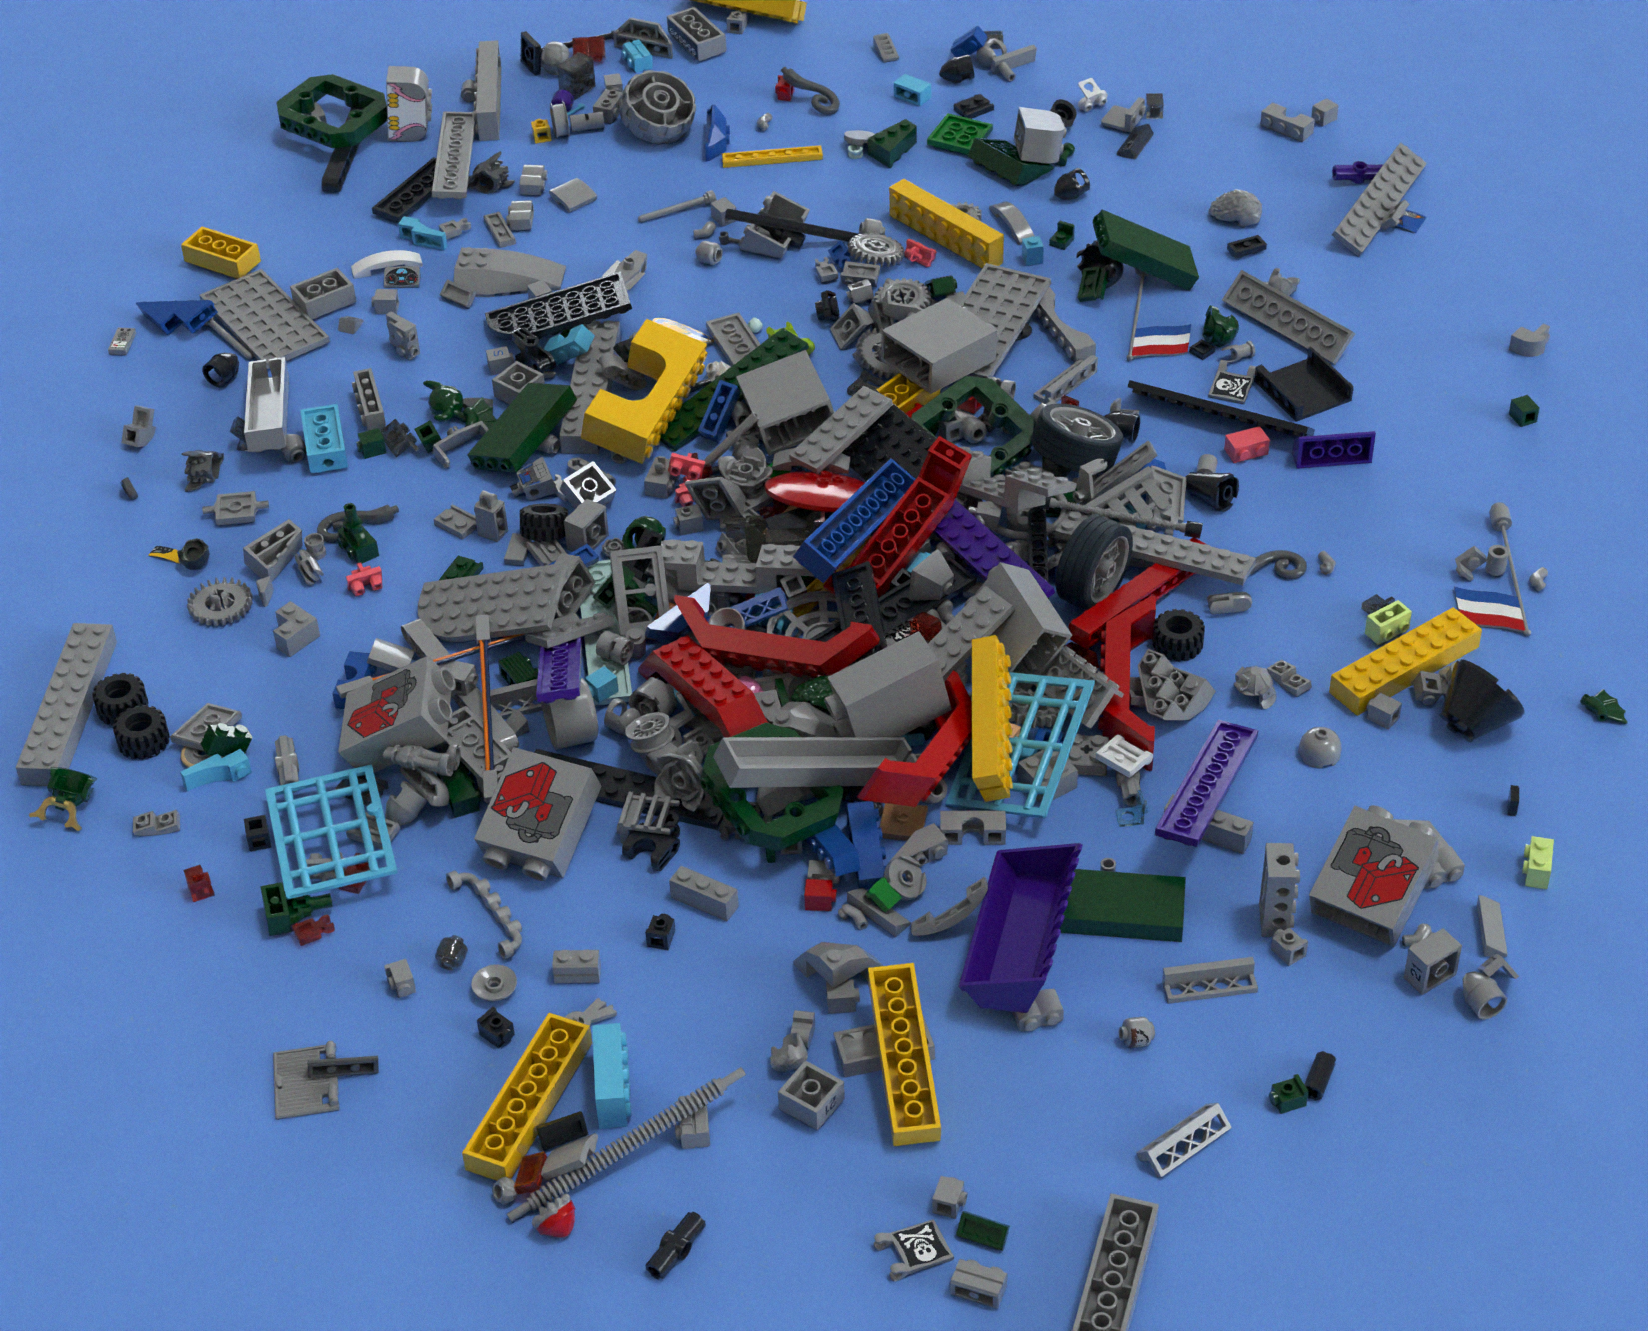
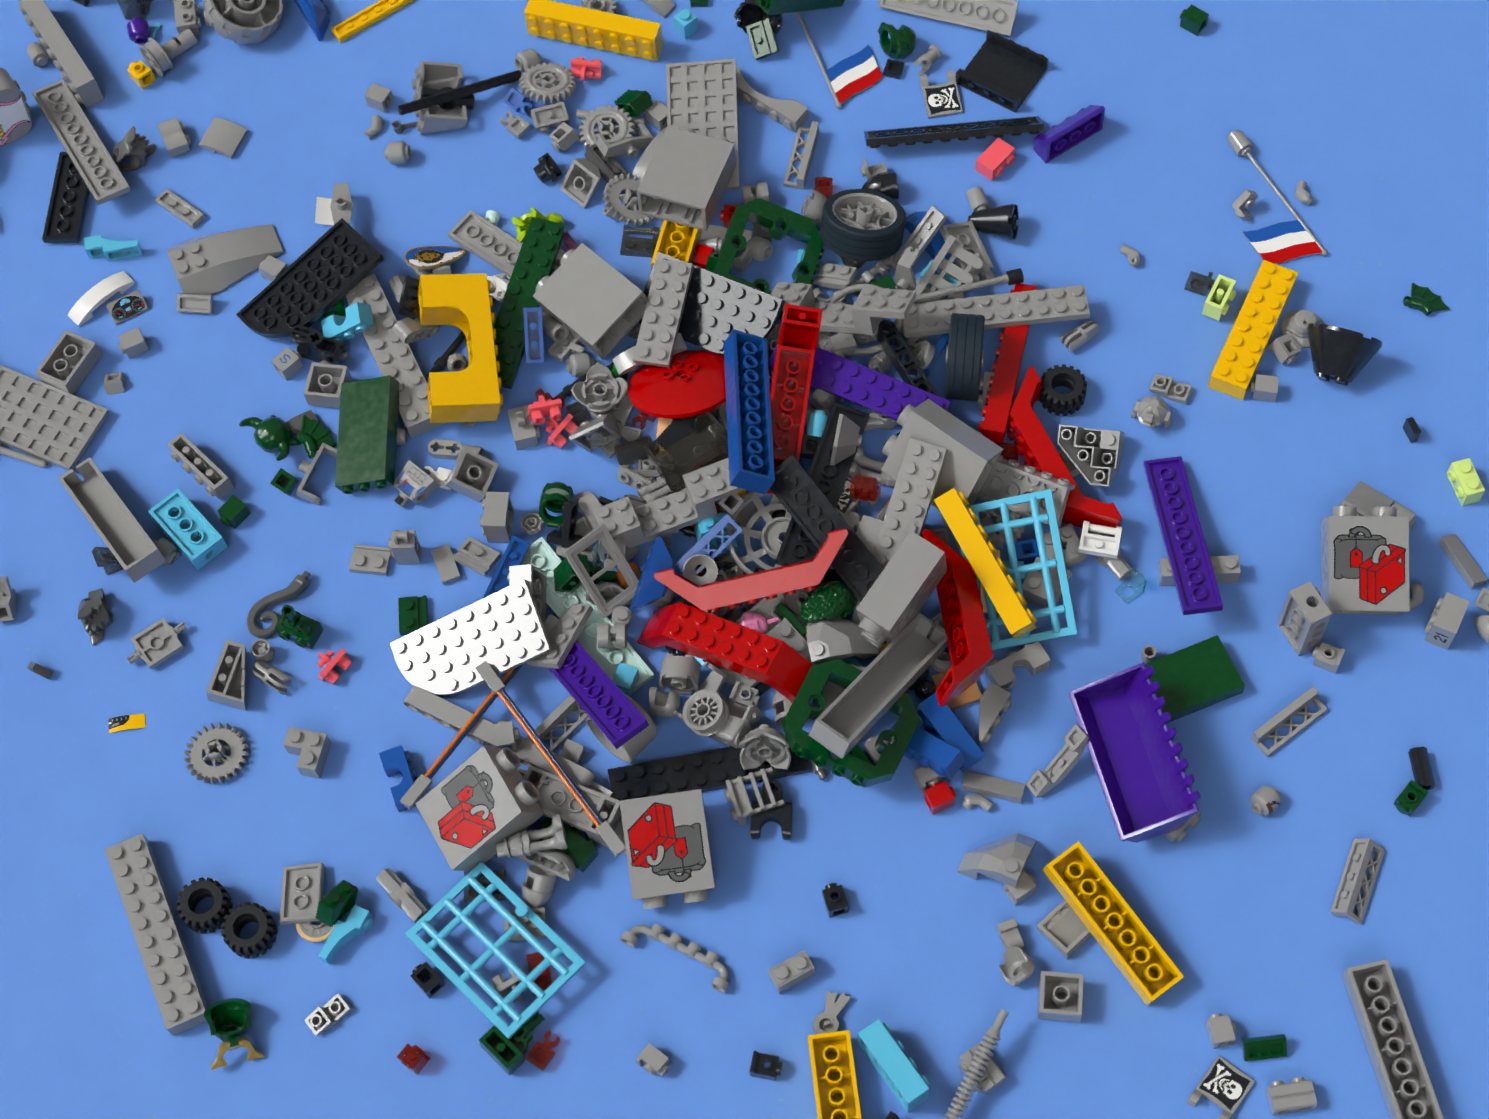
camera: 25 degrees left, 20 degrees up
(194, 554) = (156, 714): pearl dark grey hair -> none
(224, 365) = (33, 489): black helmet -> none
(265, 590) = (249, 721): light grey slope -> none
(389, 655) = (416, 737): light grey slope -> none
(398, 438) = (254, 494): clear smoke bracket -> none
(403, 336) = (183, 378): light grey plate -> none
(451, 952) = (678, 1013): clear smoke head -> none
(454, 228) = (136, 228): light grey plate -> none
(494, 982) = (734, 1013): light grey dish -> none
(517, 669) = (540, 698): dark green brick -> none
(520, 215) = (191, 183): light grey brick -> none
(543, 522) = (456, 529): black tyre -> none
(688, 519) = (577, 462): light grey brick -> none
(704, 893) = (847, 845): light grey brick -> none
(707, 198) = (353, 87): light grey piece -> none
(732, 438) = (566, 364): light grey piece -> none
(883, 894) = (993, 774): green tile -> none
(910, 867) = (996, 757): light grey plate -> none
(1283, 558) = (1095, 262): dark grey plant -> none
(1320, 747) = (1237, 449): light grey cylinder -> none
(1497, 560) = (1265, 191): light grey brick -> none

